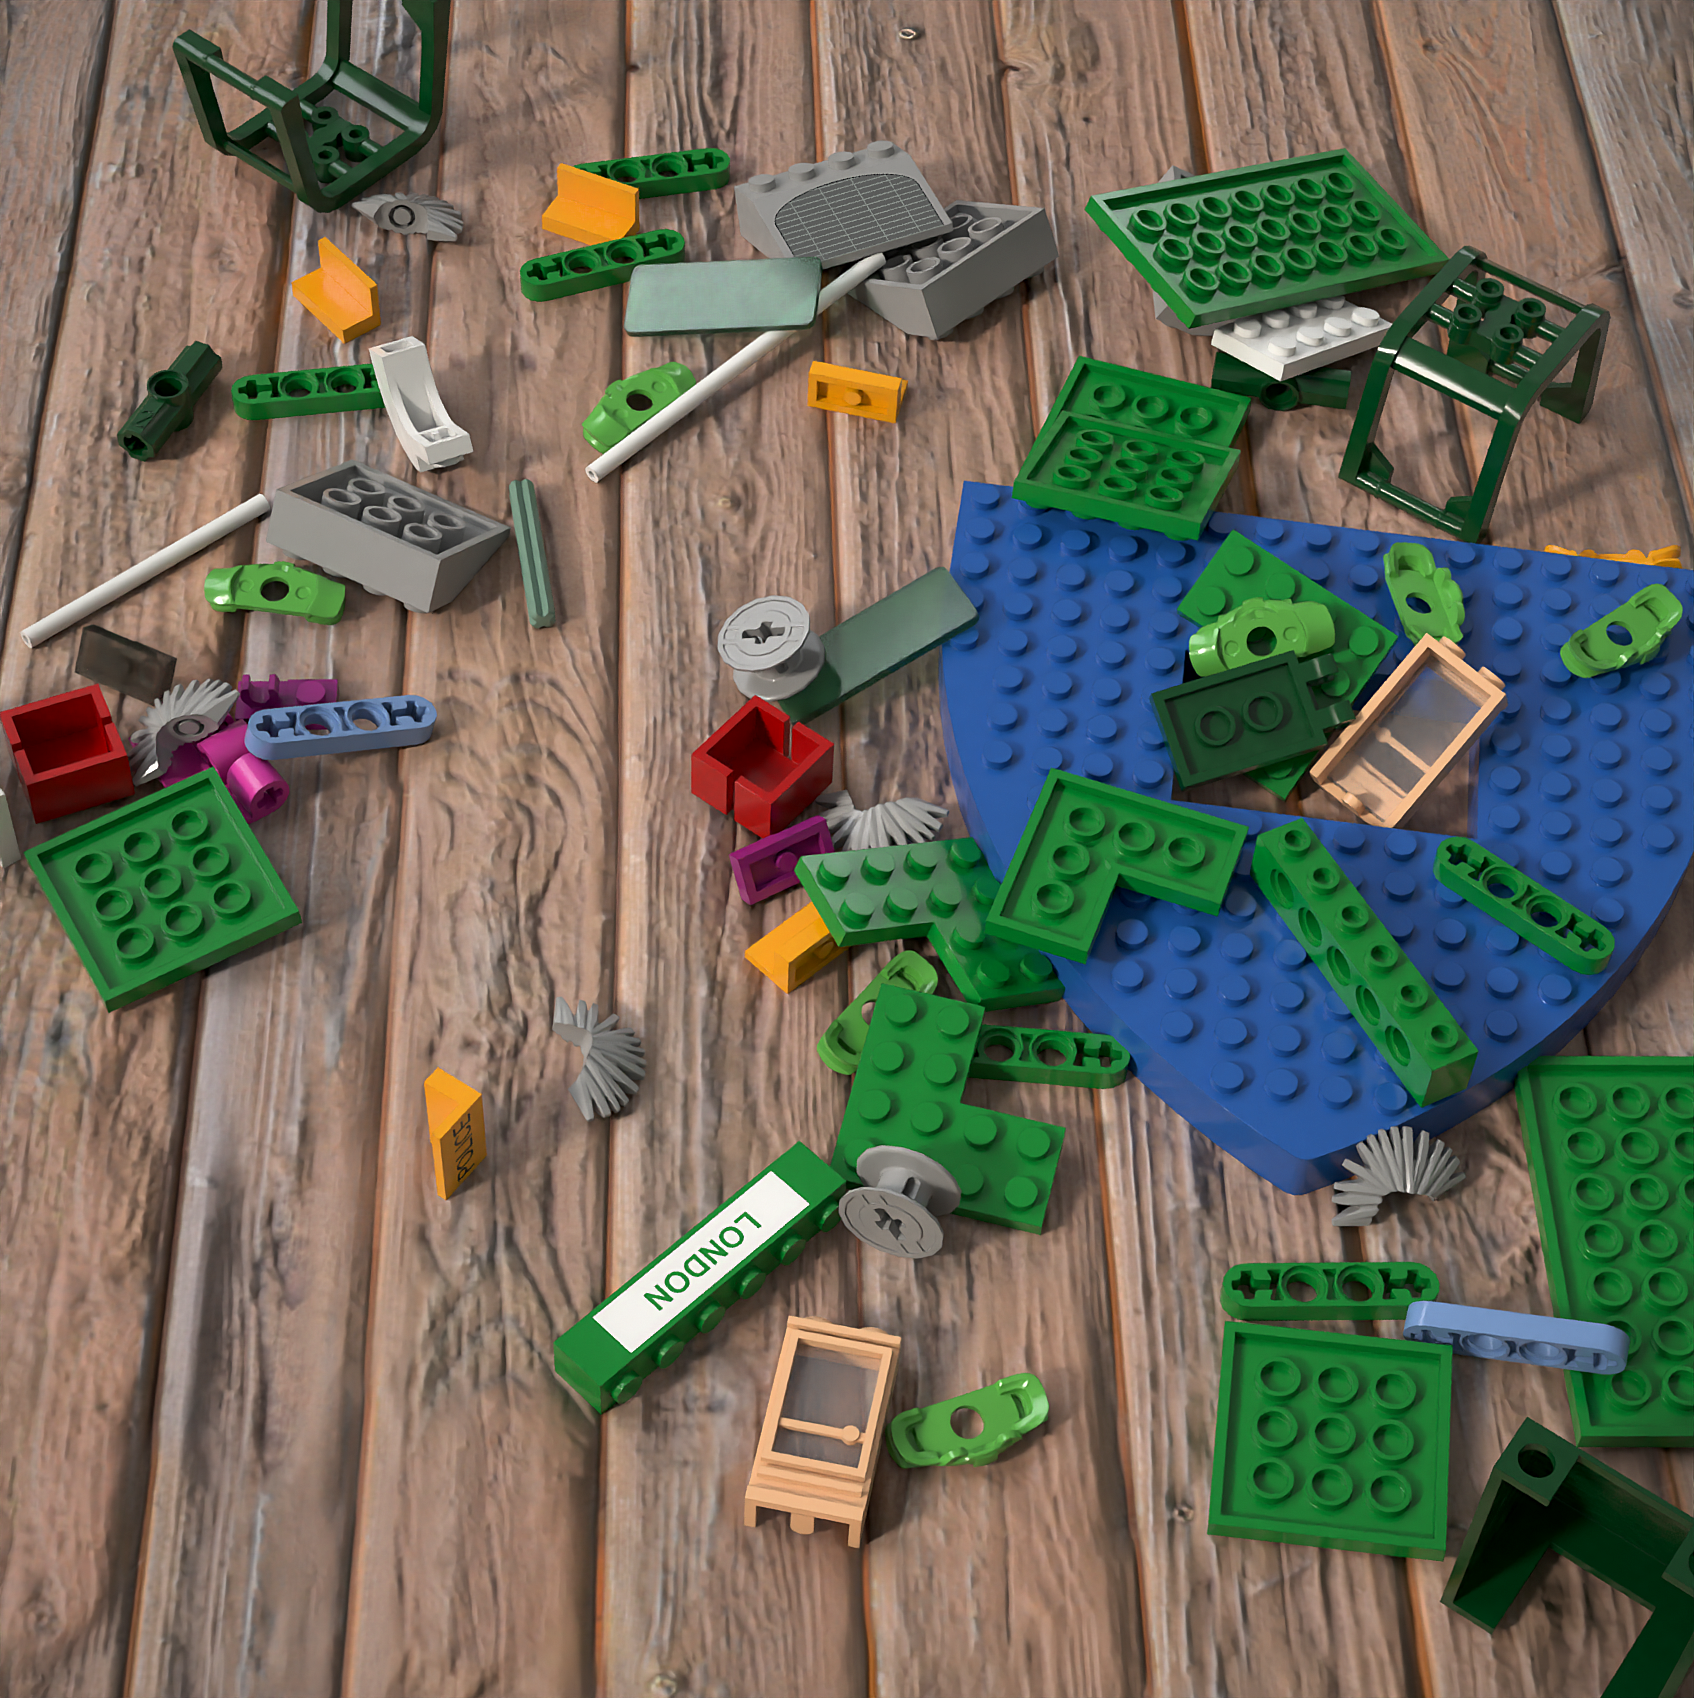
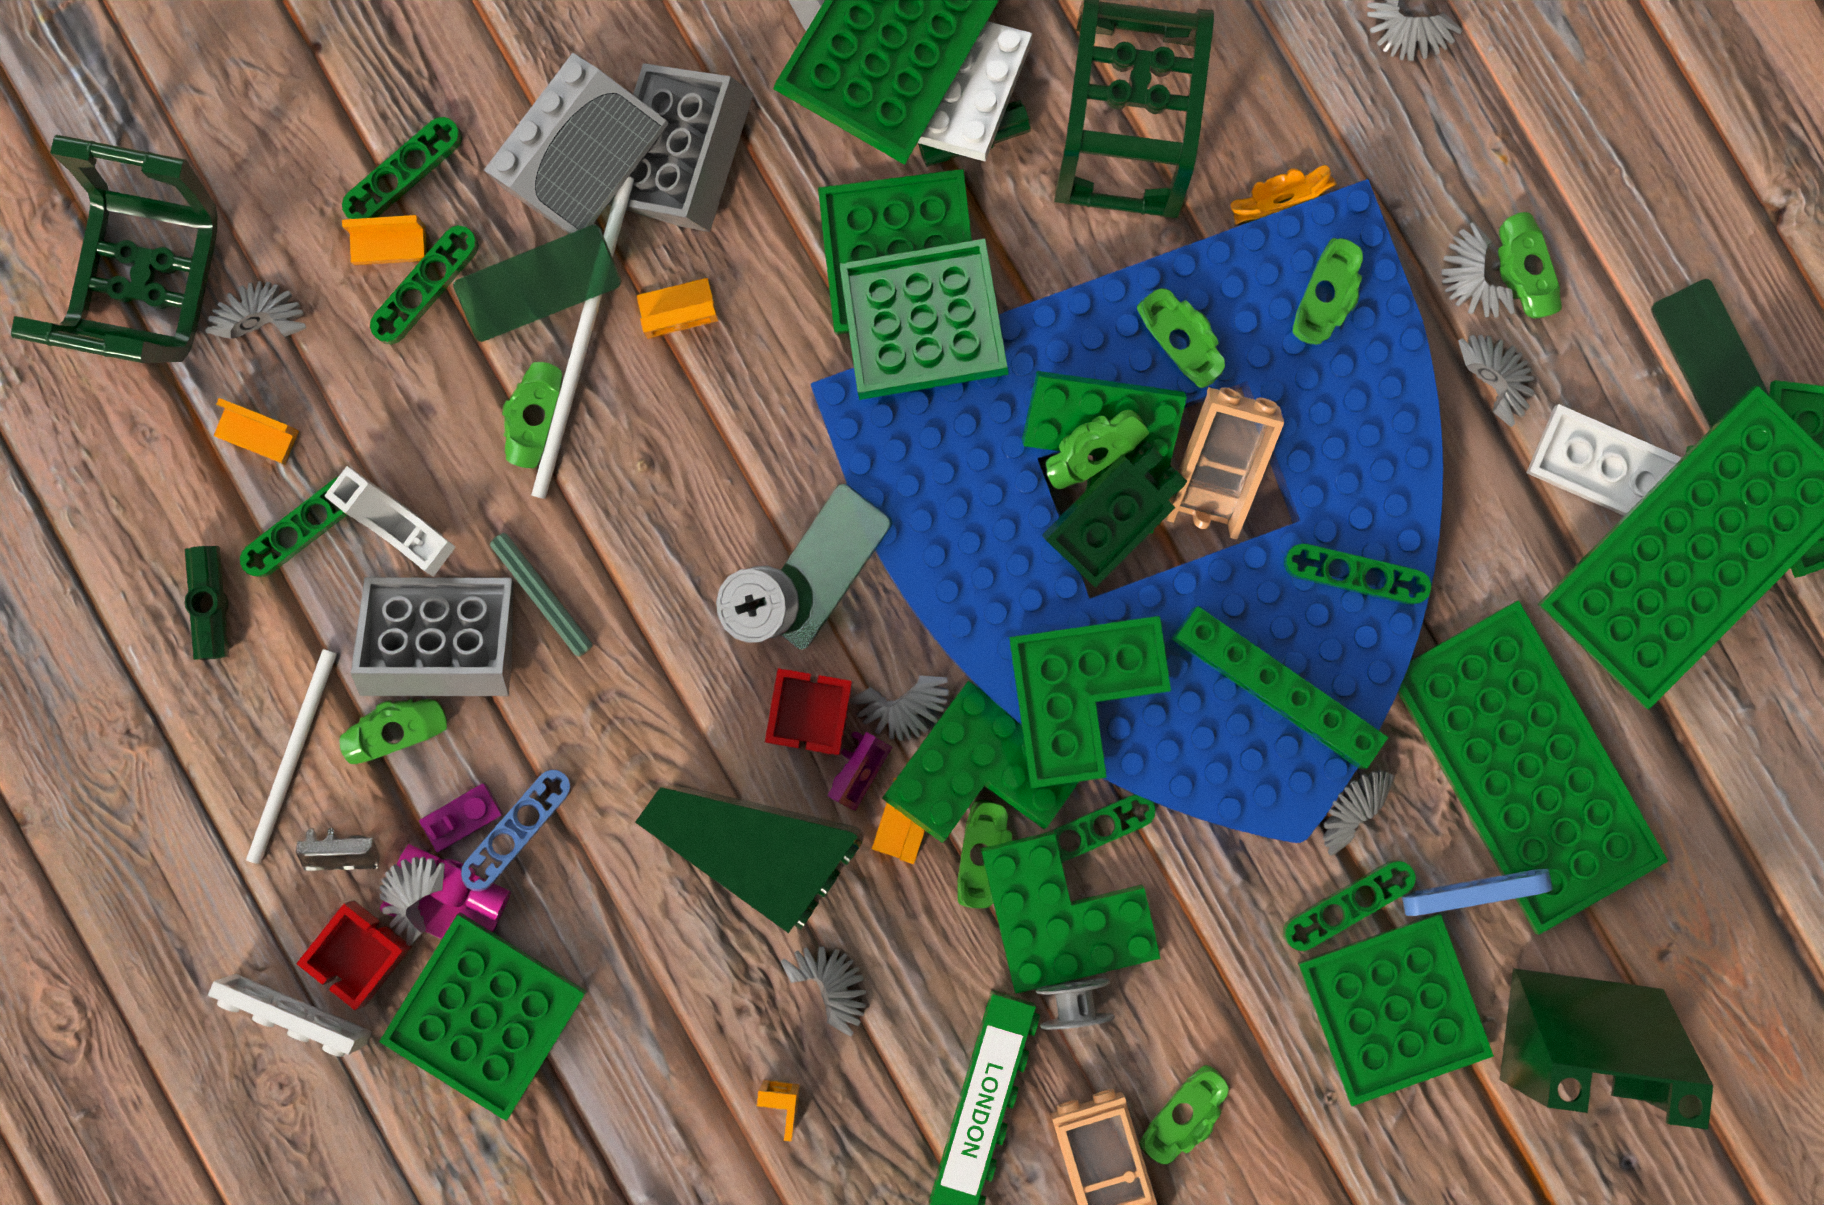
camera: 25 degrees left, 35 degrees up
(622, 827) = (754, 850): none -> dark green windscreen

